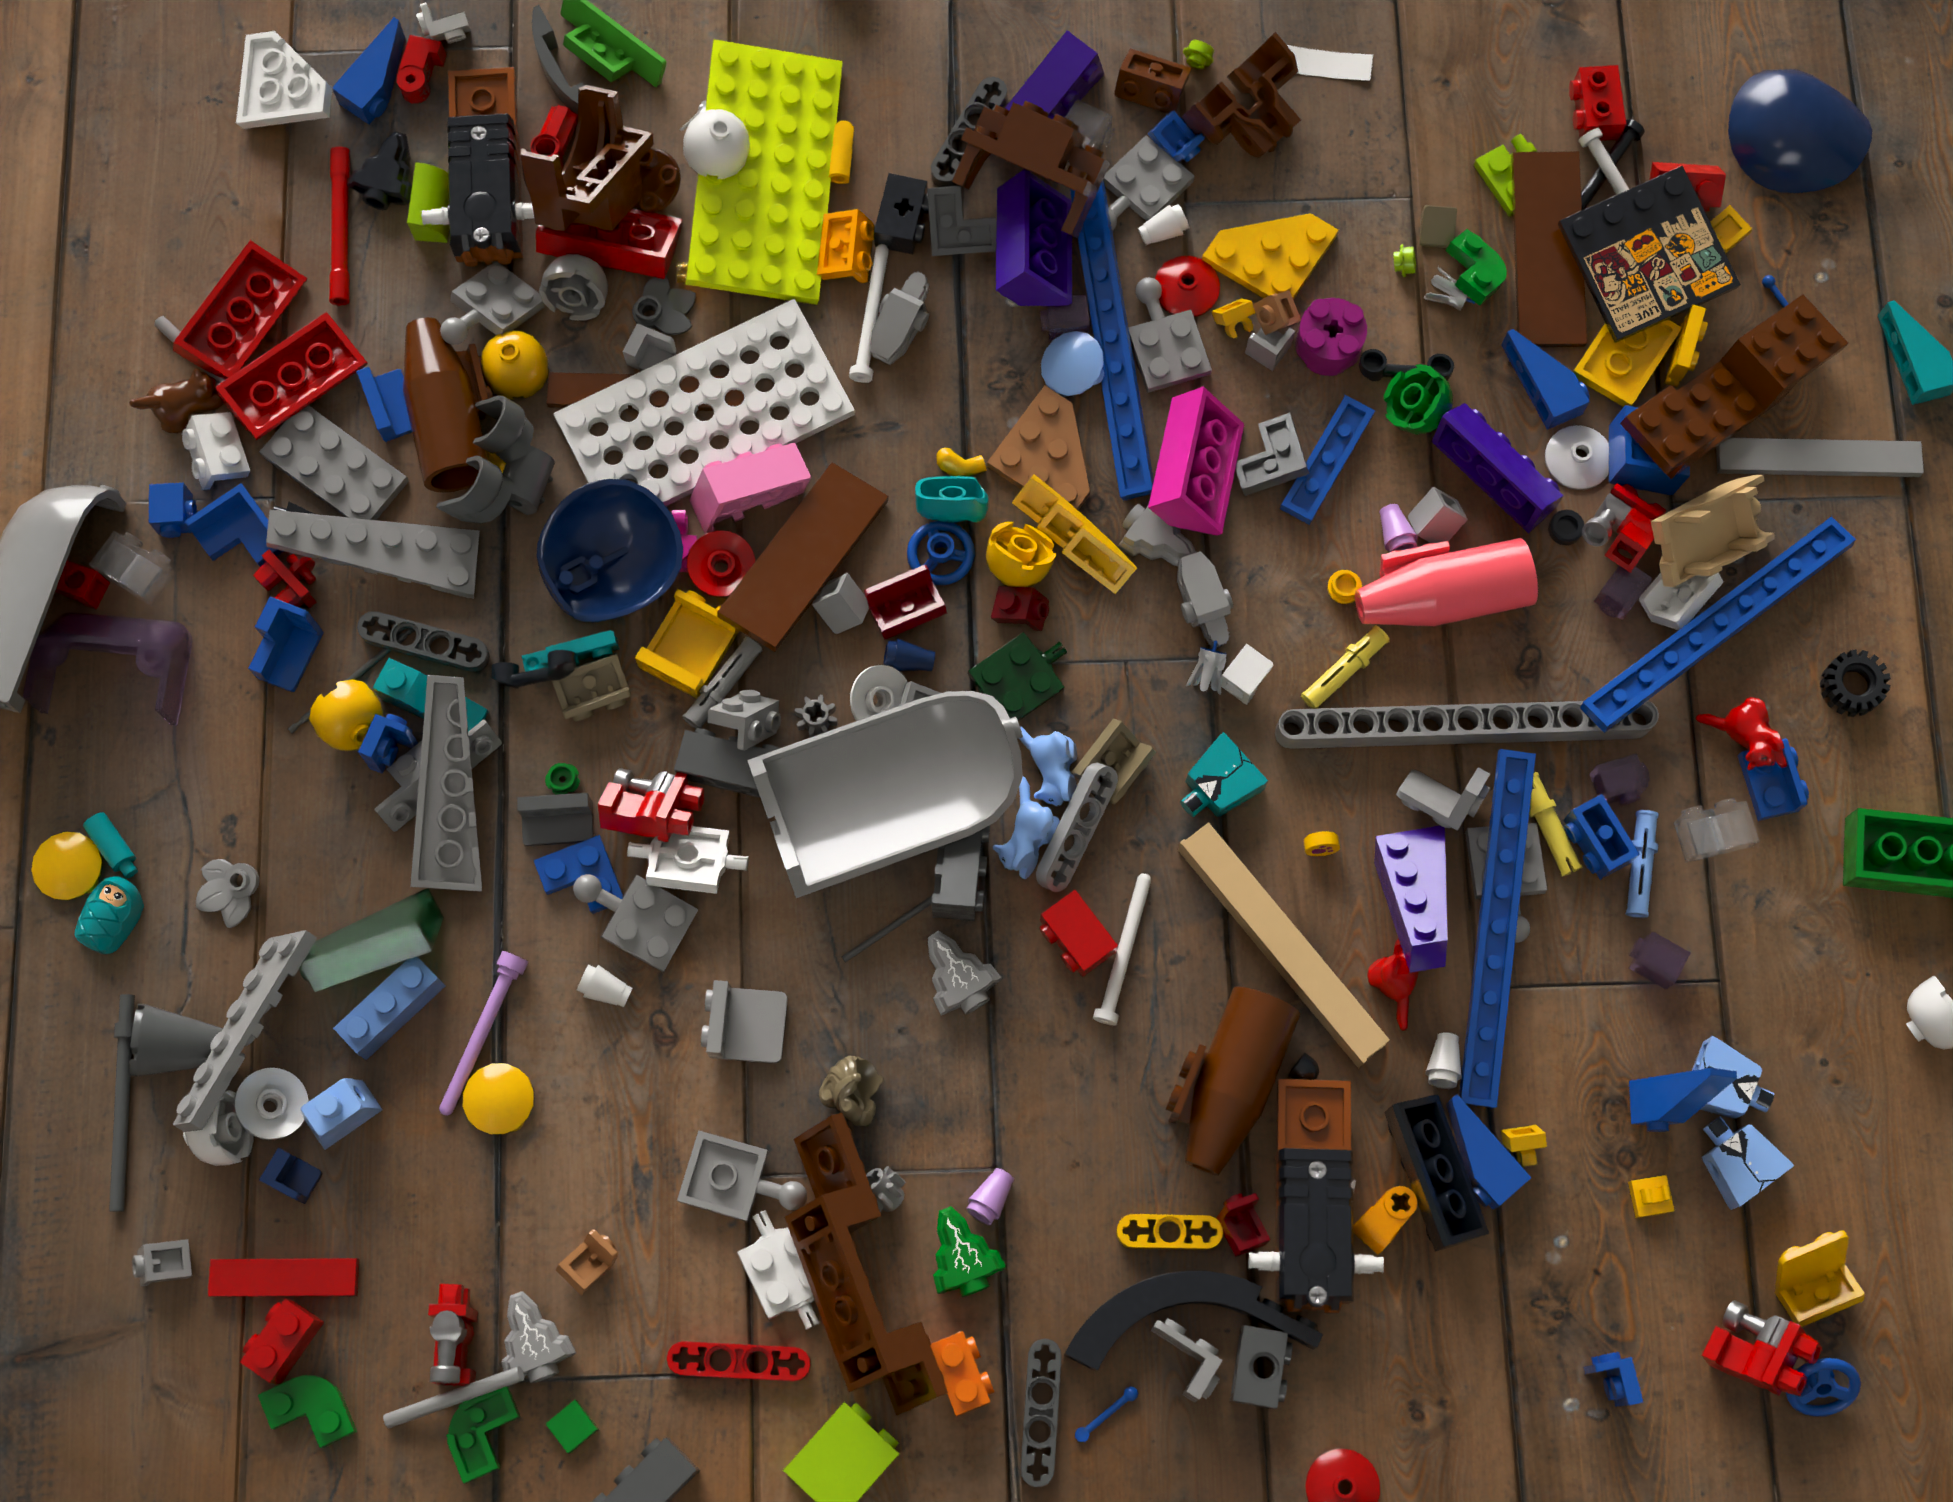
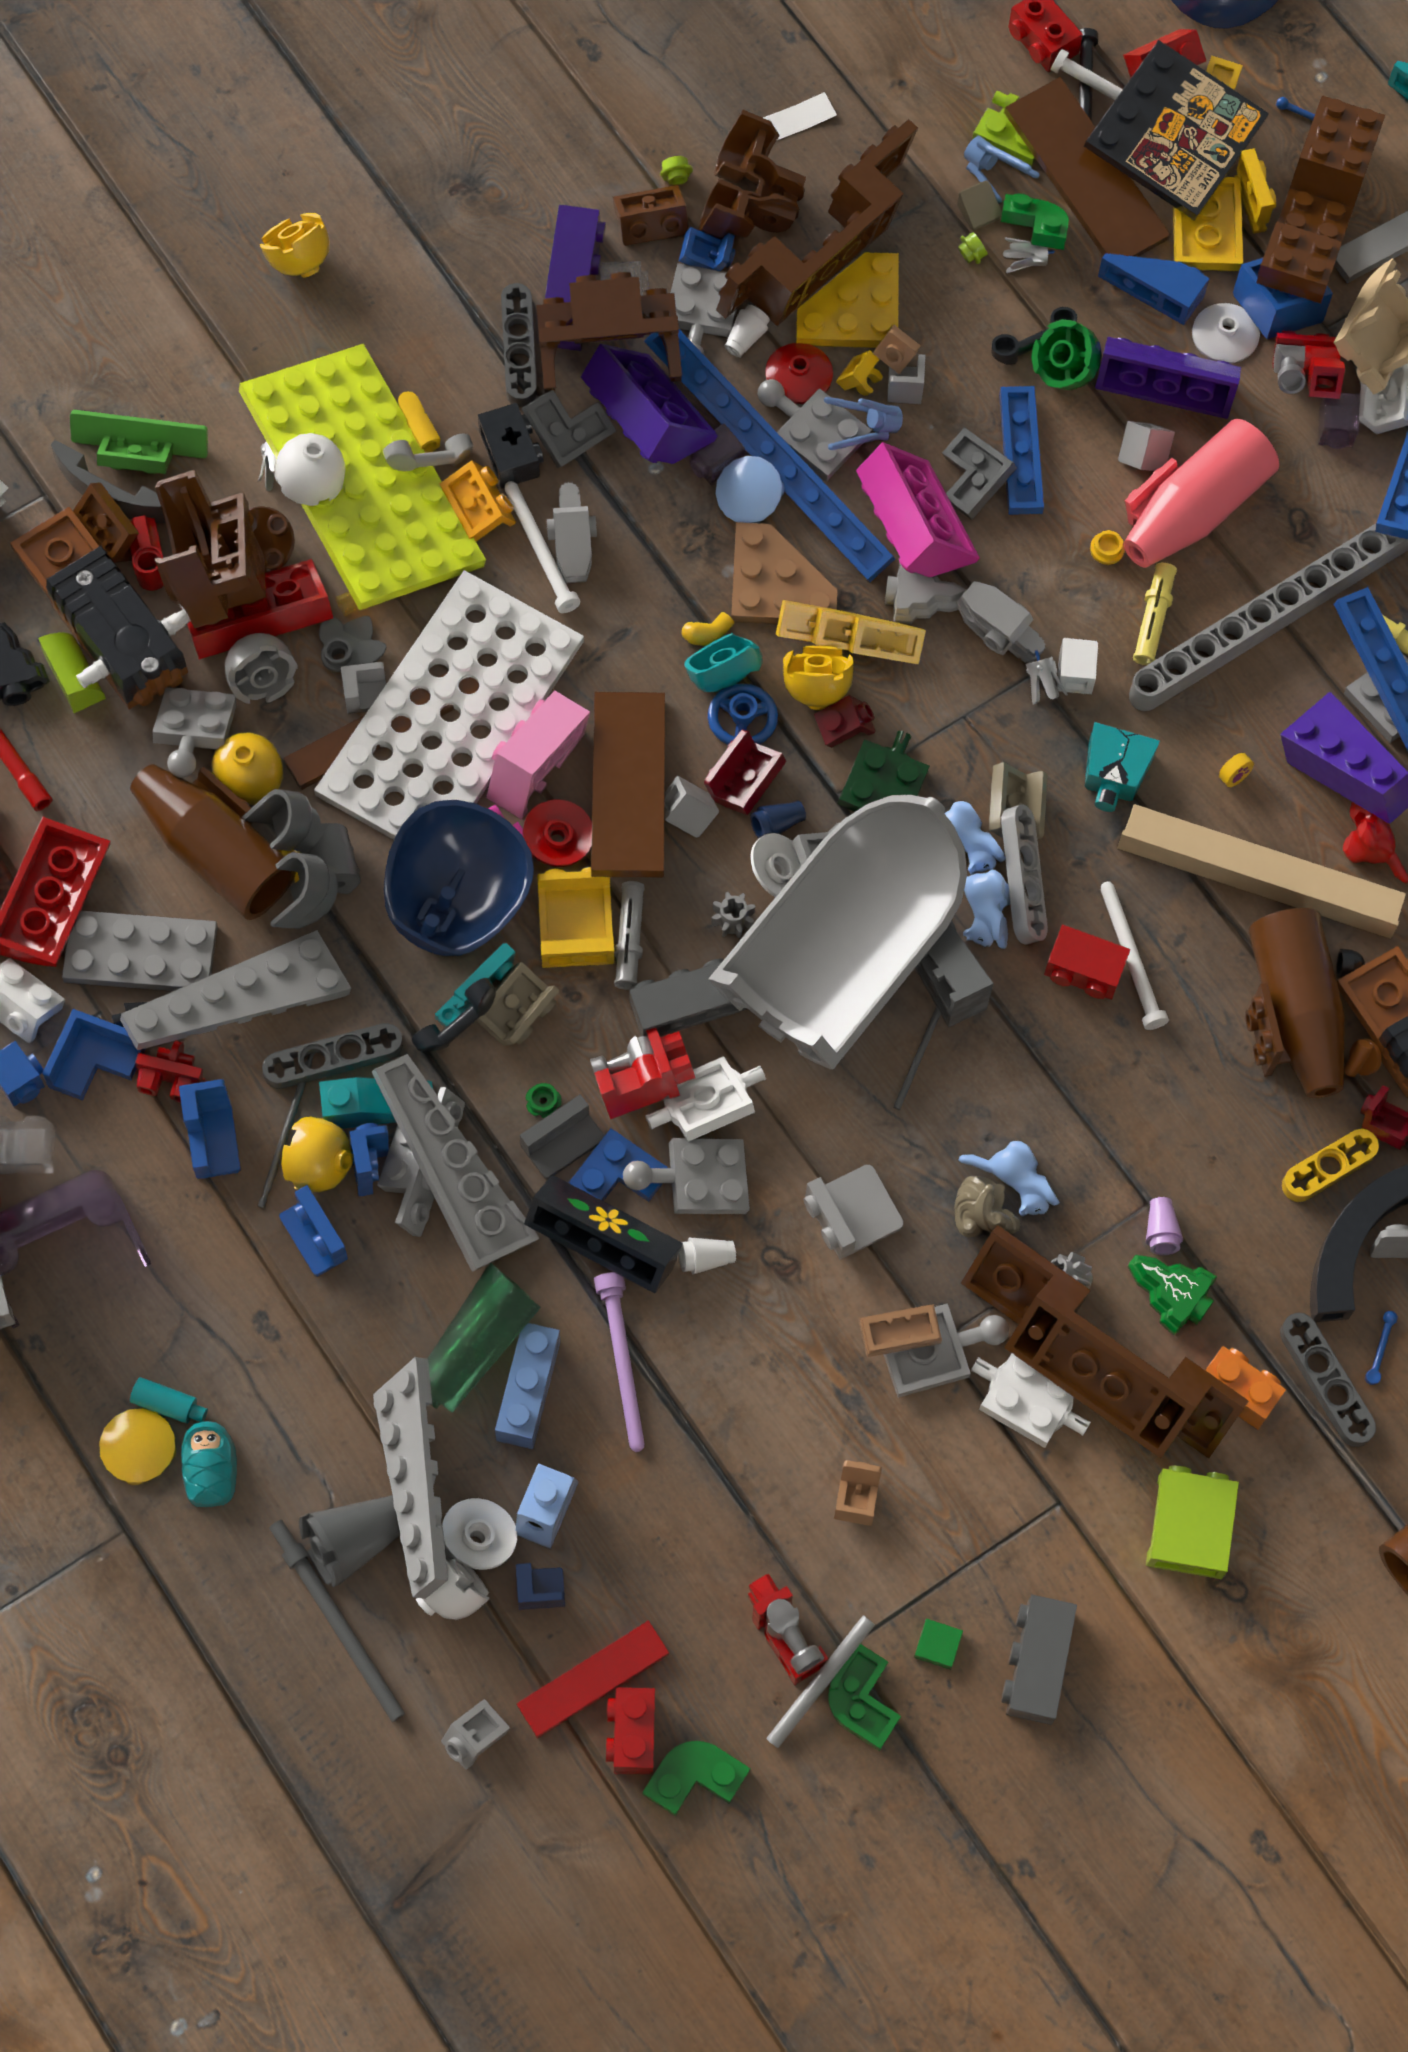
camera: 35 degrees left, 5 degrees down
(223, 892) = (301, 1382): light grey plate -> none
(310, 778) = (313, 1233): none -> blue bracket
(386, 402) = (153, 867): blue panel -> none
(498, 1099) = (678, 1407): yellow dish -> none
(530, 919) = (603, 1233): none -> black brick
(532, 97) = (106, 522): none -> reddish brown bracket
(533, 1341) = (855, 1590): light grey rock -> none
(709, 1149) = (900, 1330): none -> medium nougat plate
(739, 1356) = (1042, 1494): red beam -> none
(750, 714) = (674, 942): light grey bracket -> none
(801, 174) = (401, 458): none -> light grey bar
(902, 1073) = (1017, 1168): none -> light blue animal
(958, 976) = (1008, 1060): light grey rock -> none
(1225, 364) = (880, 417): none -> medium blue plant
(1258, 1159) = (1363, 1058): none -> dark orange plate
(1330, 181) = (861, 203): none -> reddish brown bracket
(1336, 319) = (955, 344): magenta brick -> none
(1396, 529) = (1119, 475): lavender cone -> none
(1441, 802) = (1325, 677): light grey bracket -> none
(1472, 185) = (984, 156): none -> medium blue plant
(1566, 527) = (1255, 395): black tile -> none

